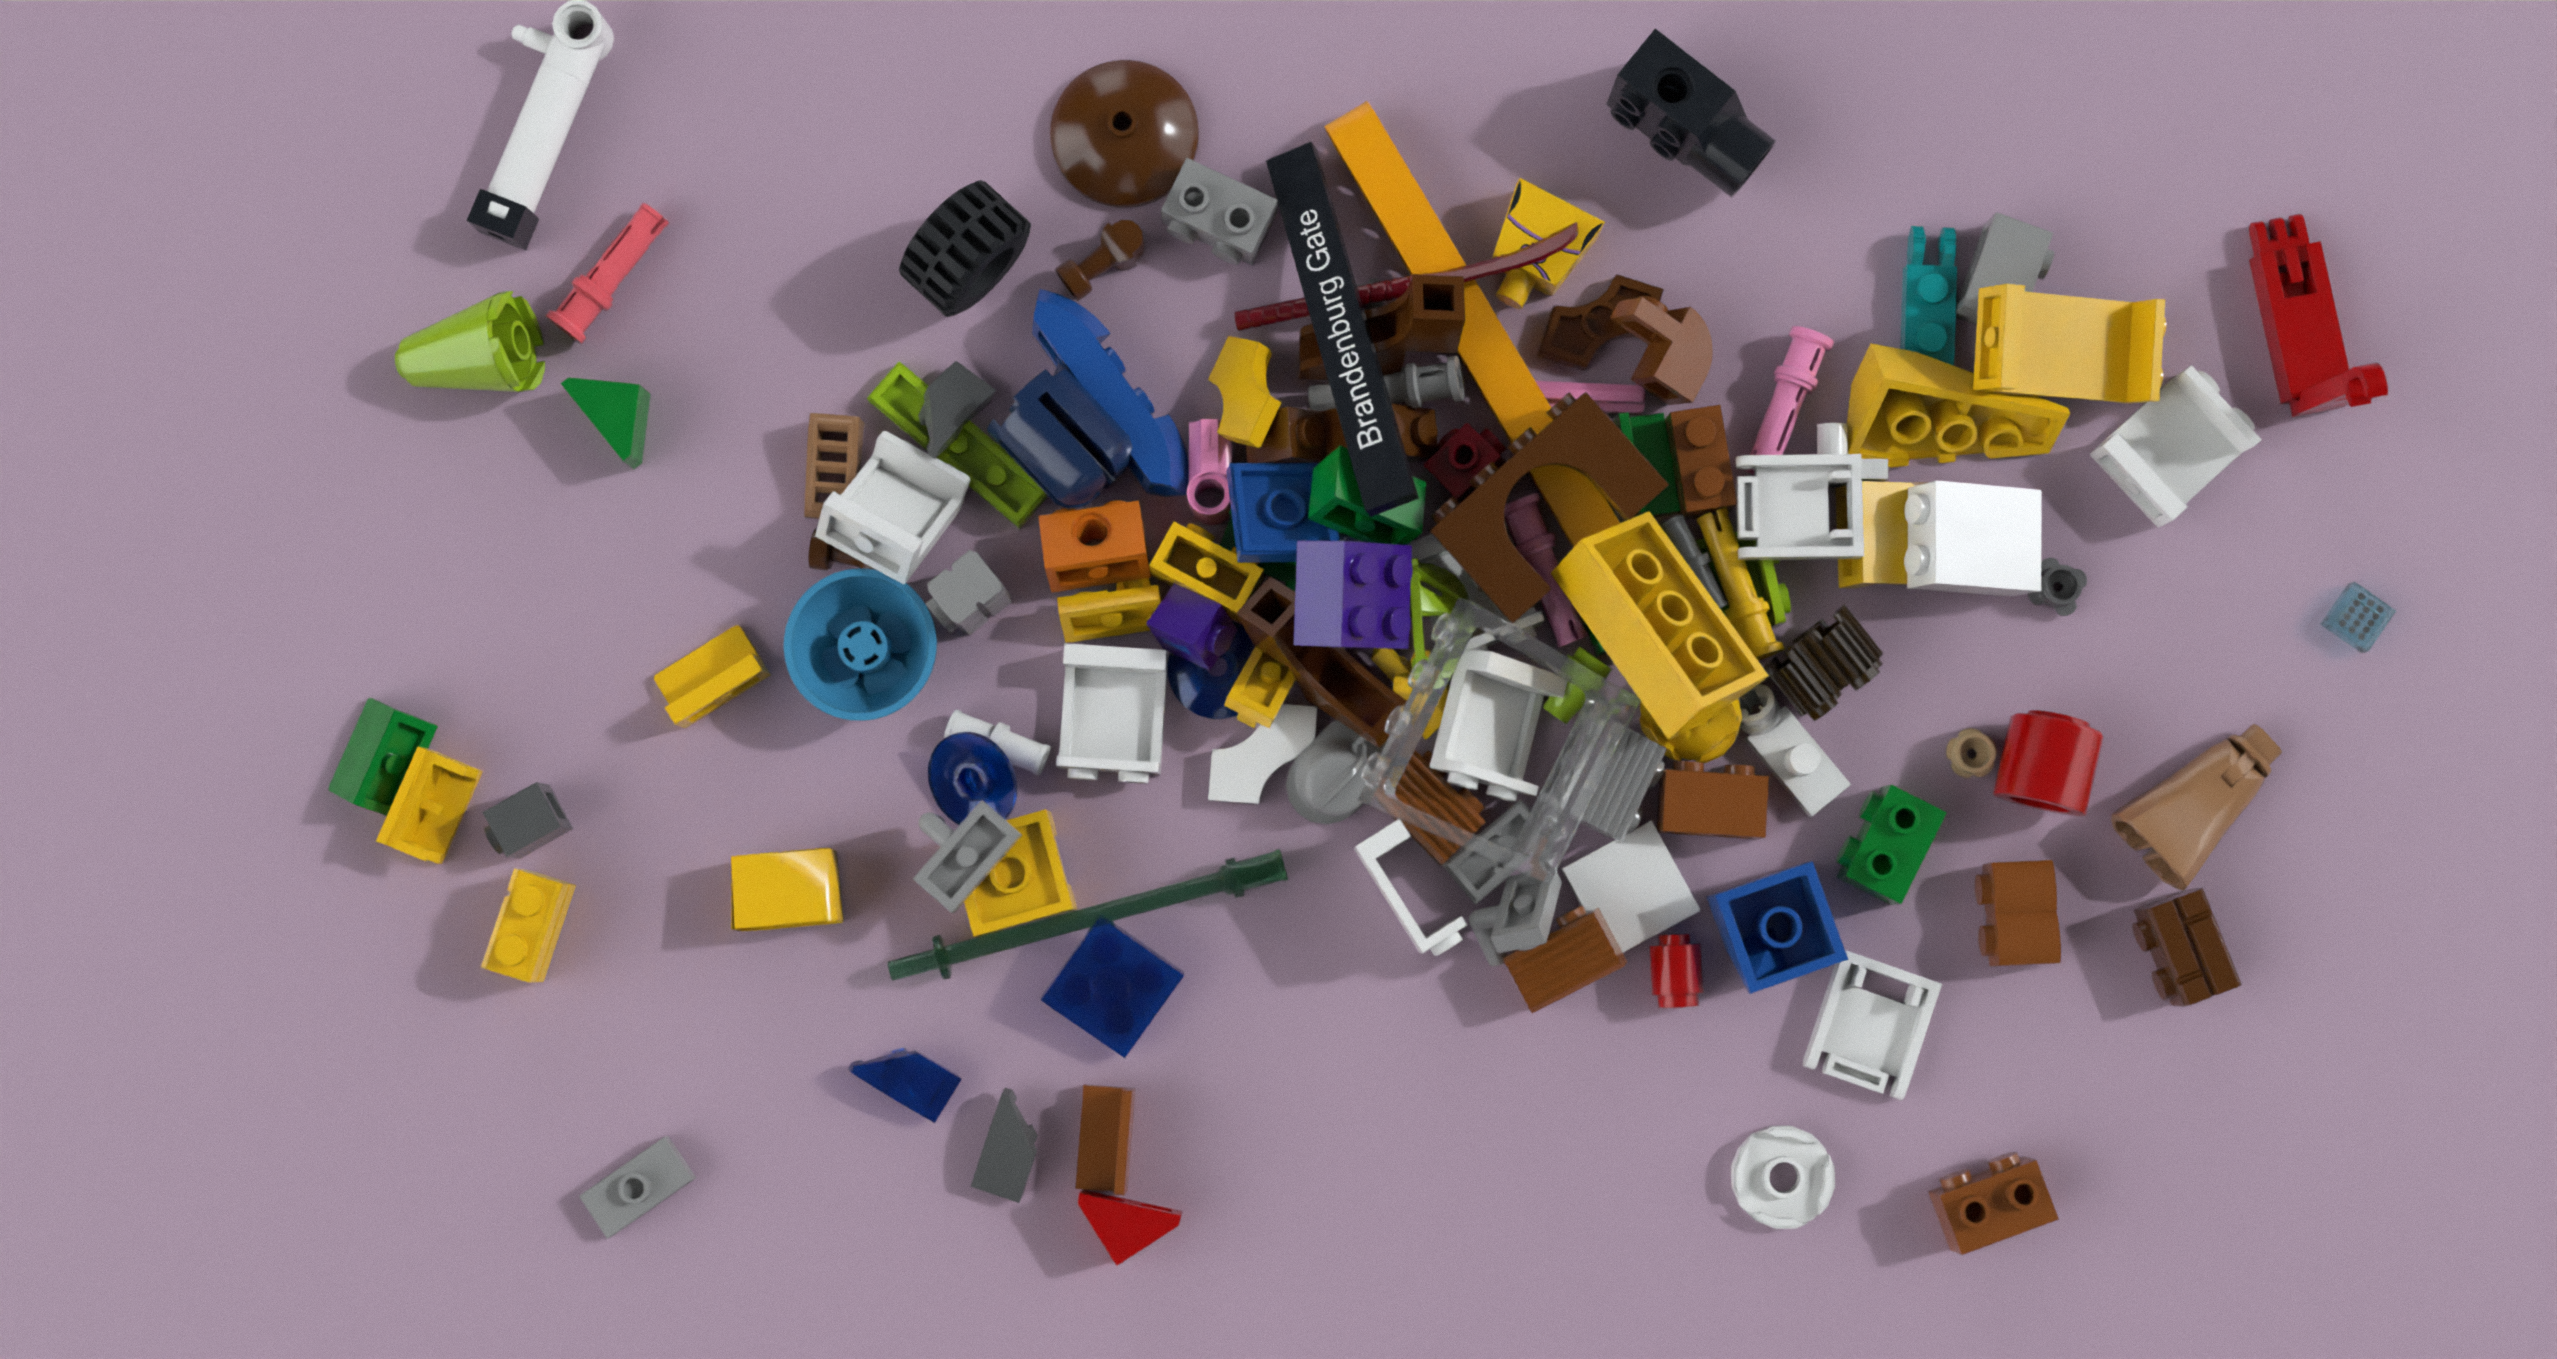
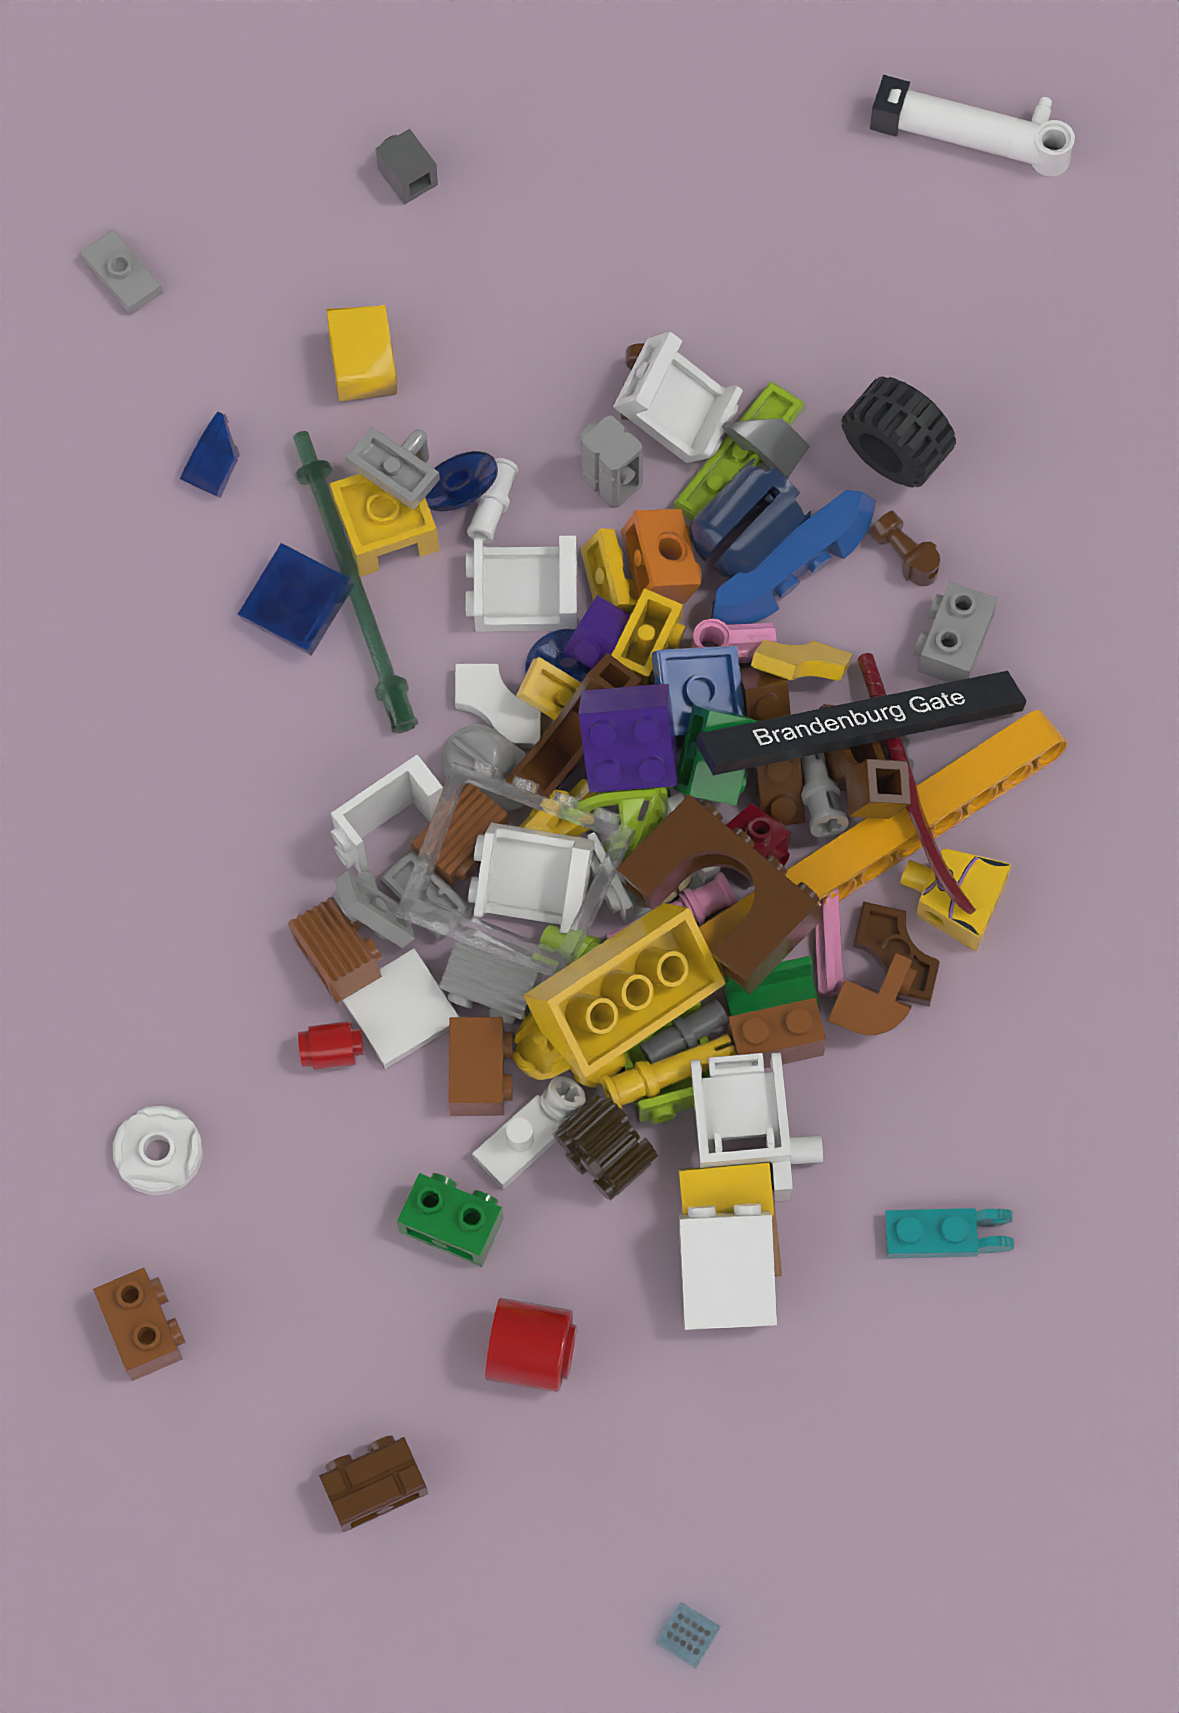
camera: 85 degrees right, 15 degrees down
(379, 755) = (448, 64): green panel -> none
(429, 805) = (415, 97): yellow hinge -> none
(476, 348) = (782, 97): lime cone -> none
(528, 926) = (323, 173): yellow brick -> none
(594, 291) = (839, 176): coral pin -> none
(617, 413) = (736, 200): green slope -> none
(710, 676) = (531, 288): yellow panel -> none
(816, 445) = (723, 347): medium nougat slope -> none
(833, 638) = (556, 365): dark azure piece -> none
(1006, 1152) = (158, 533): dark grey slope -> none
(1105, 1138) = (171, 609): dark orange panel -> none
(1126, 1224) = (102, 622): red slope -> none
(1130, 164) = (1027, 583): reddish brown dish -> none
(1700, 123) = (1083, 1000): black brick -> none
(1777, 927) = (371, 1120): blue slope -> none
(1794, 381) = (859, 1116): bright pink pin -> none
(1869, 1033) = (286, 1216): white container -> none
(1925, 408) = (844, 1234): yellow wedge -> none
(1983, 747) = (541, 1278): tan plate -> none
(2004, 254) = (974, 1291): light grey brick -> none
(2019, 913) = (396, 1334): dark orange brick -> none
(2068, 346) = (911, 1341): yellow panel -> none
(2071, 580) = (688, 1346): flat silver plate -> none
(2175, 445) = (831, 1456): white panel -> none
(2196, 805) = (502, 1487): medium nougat piece -> none
(2304, 323) = (959, 1567): red hinge -> none

